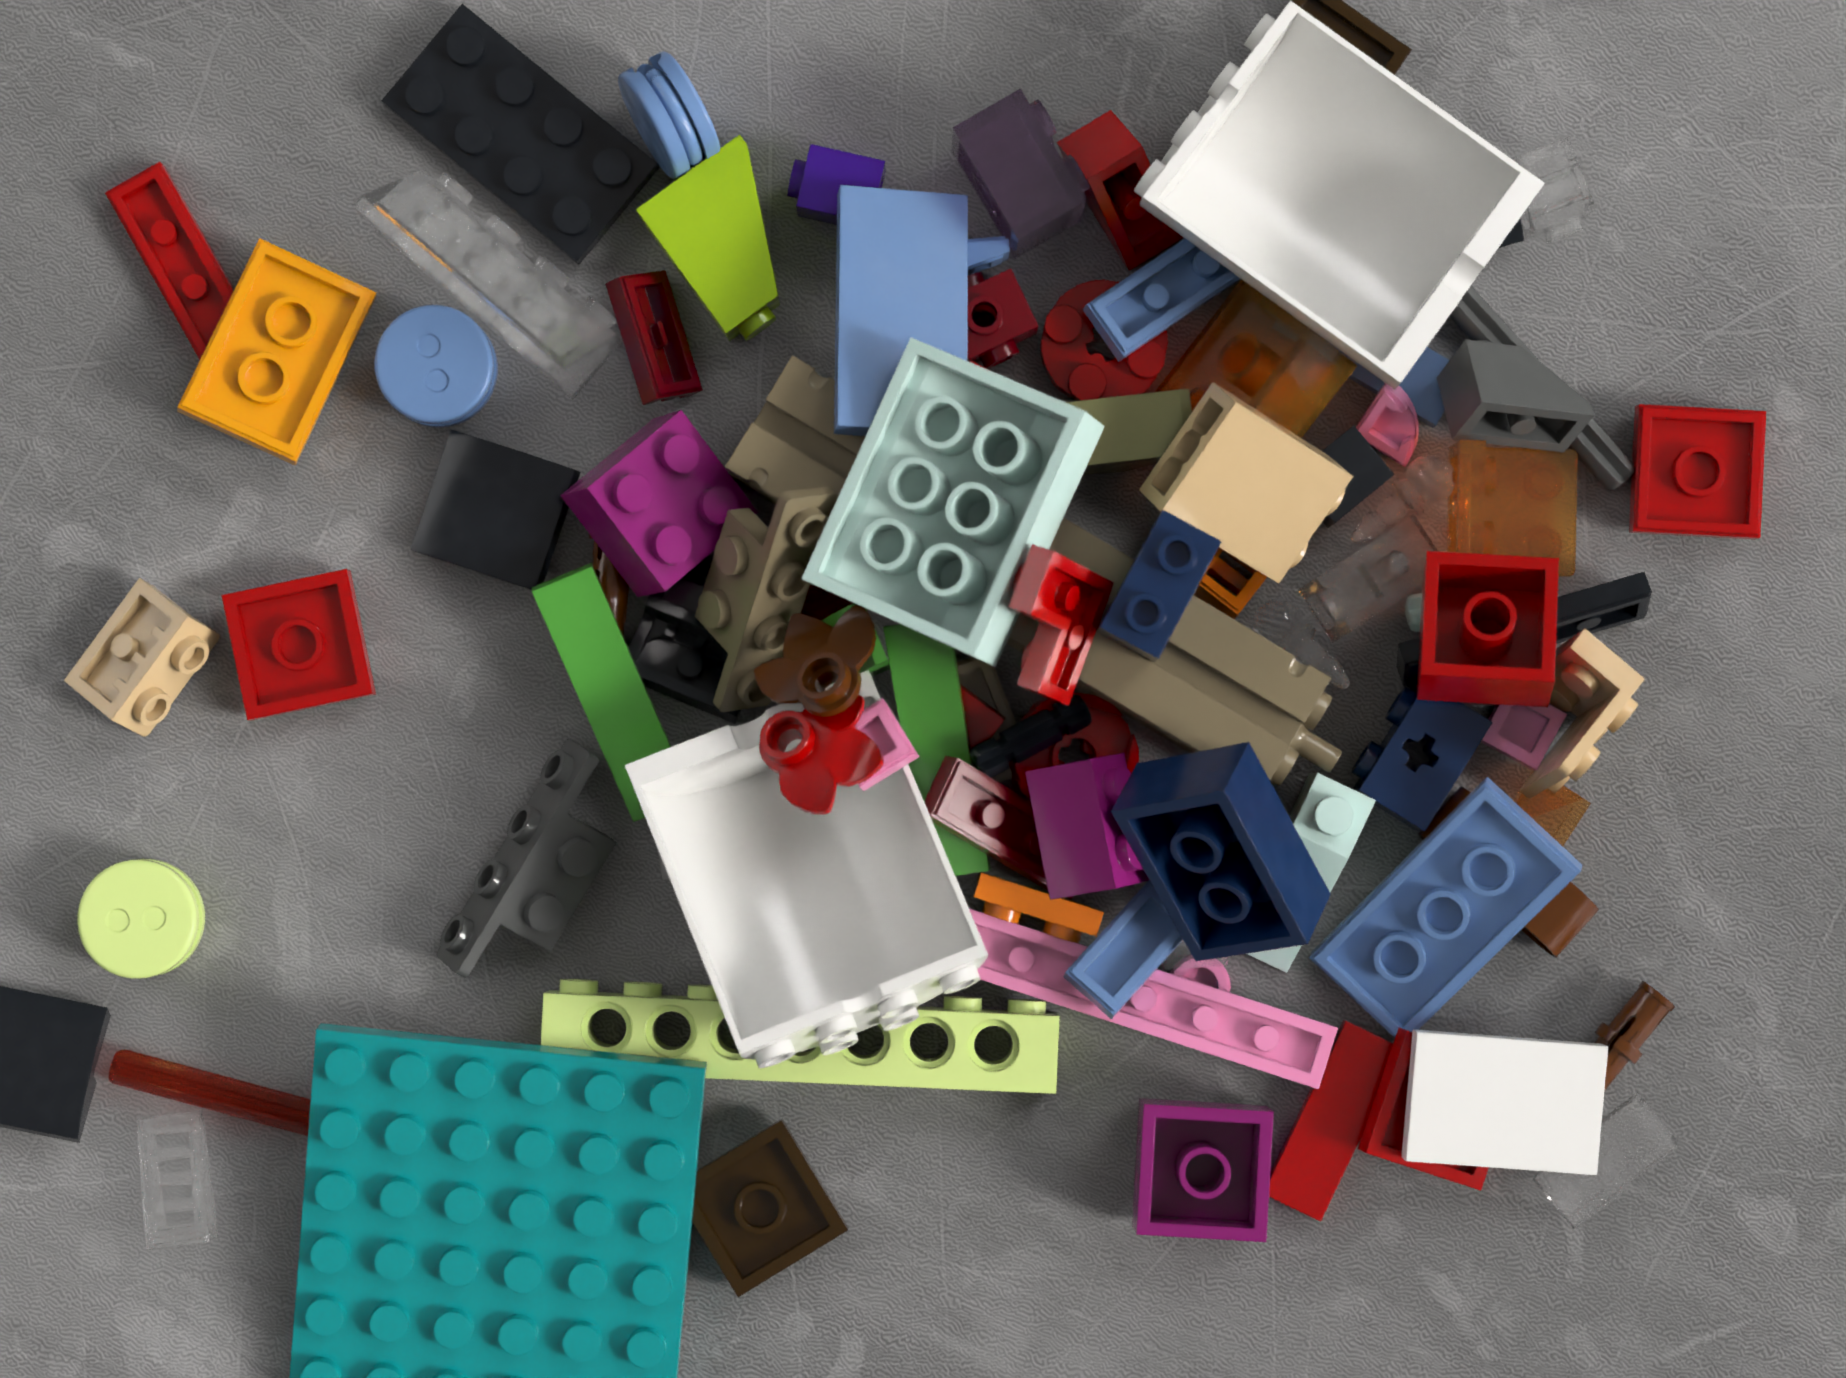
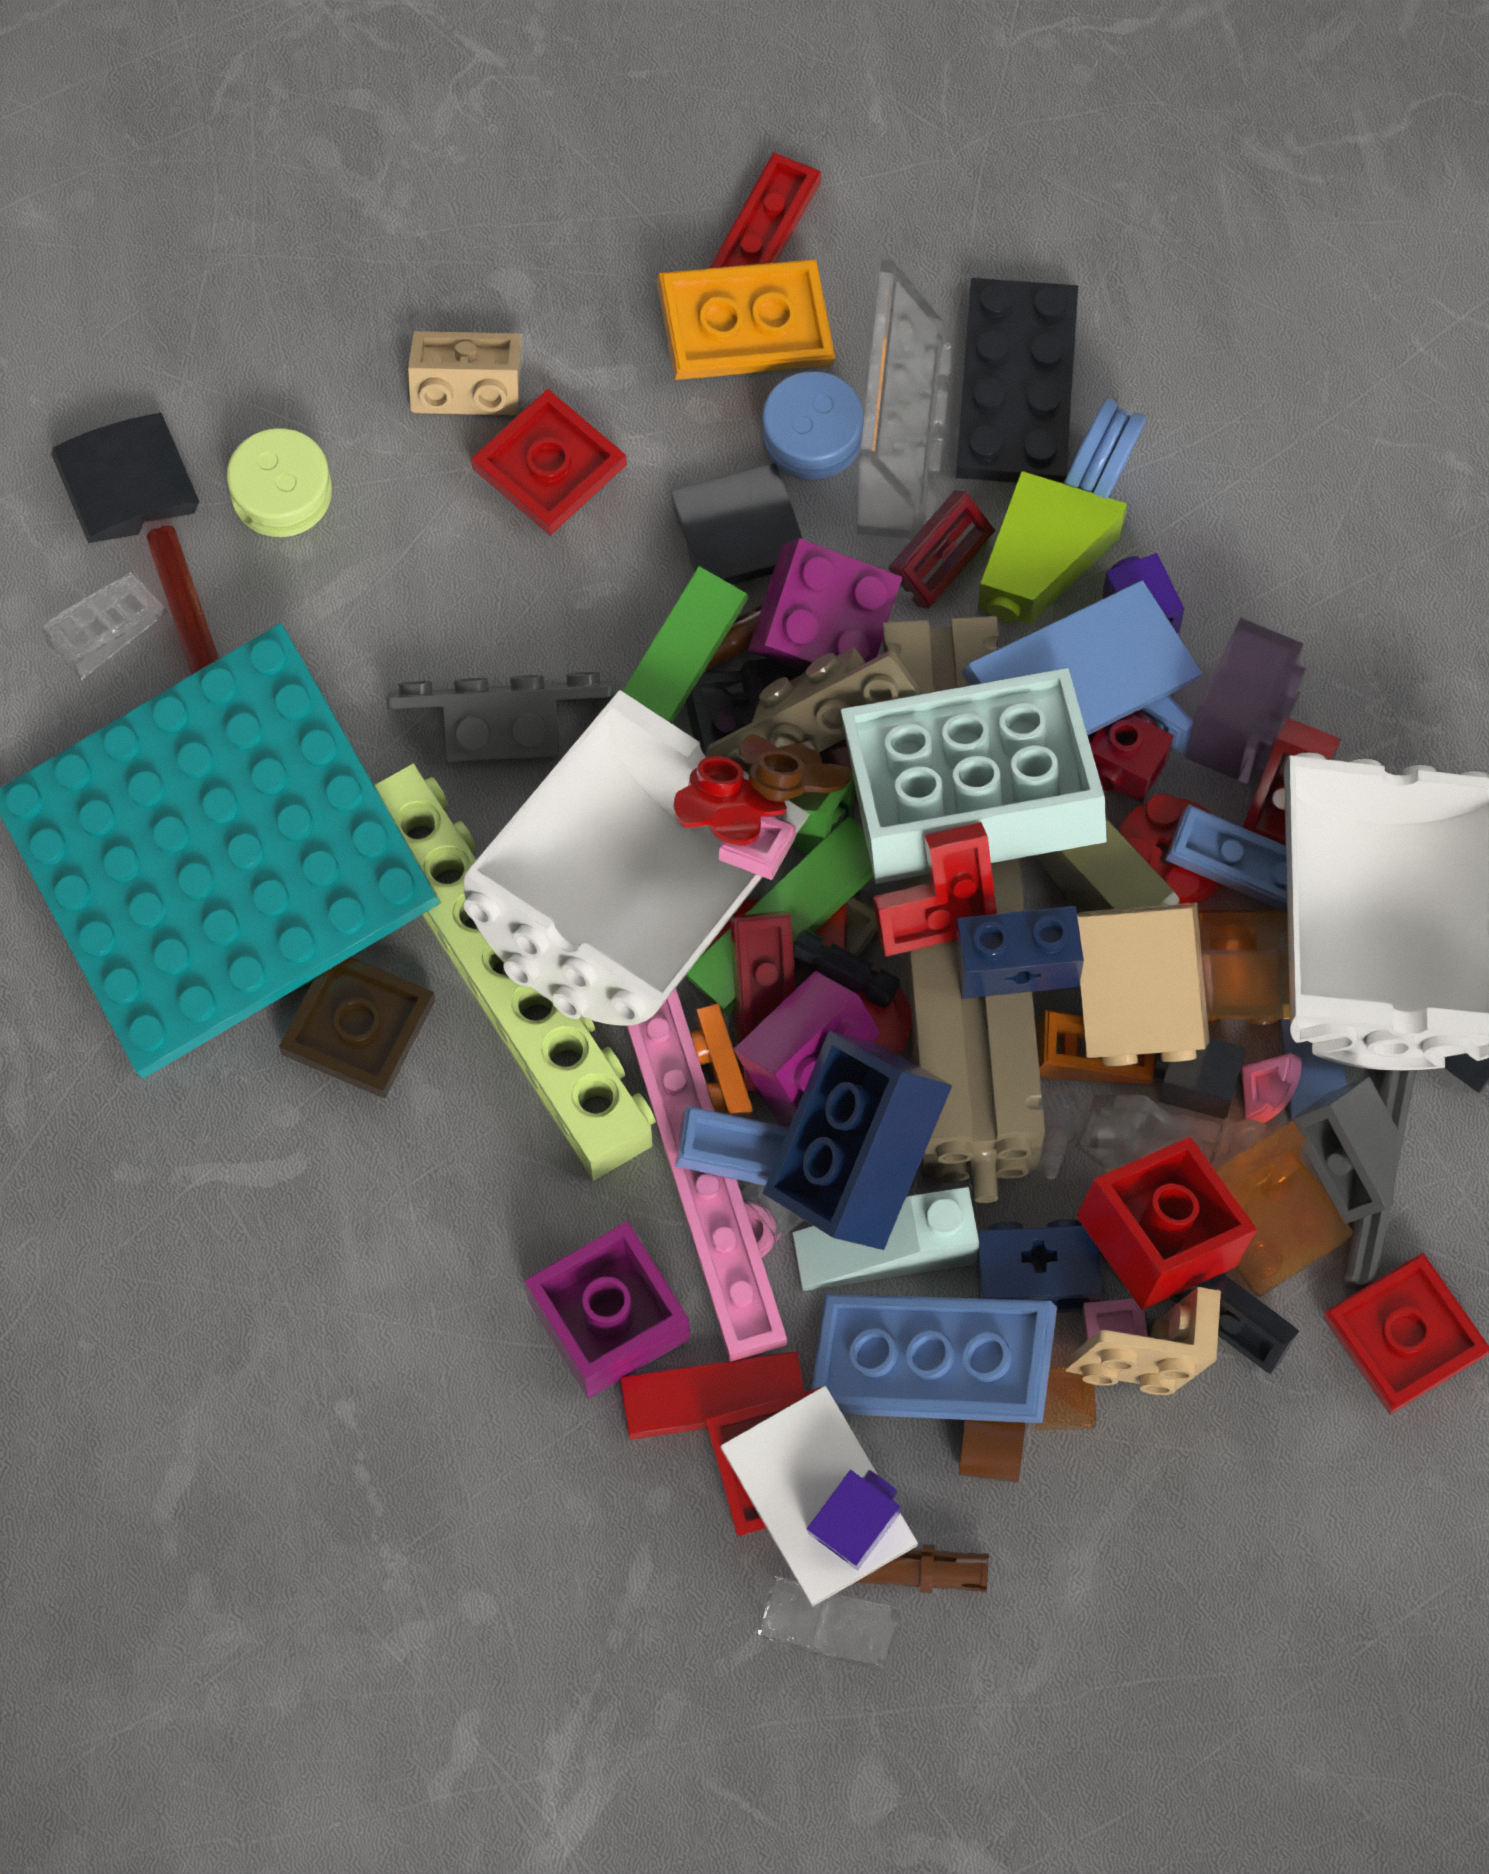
camera: 60 degrees right, 20 degrees down
(1561, 1093) = (856, 1517): none -> dark purple brick

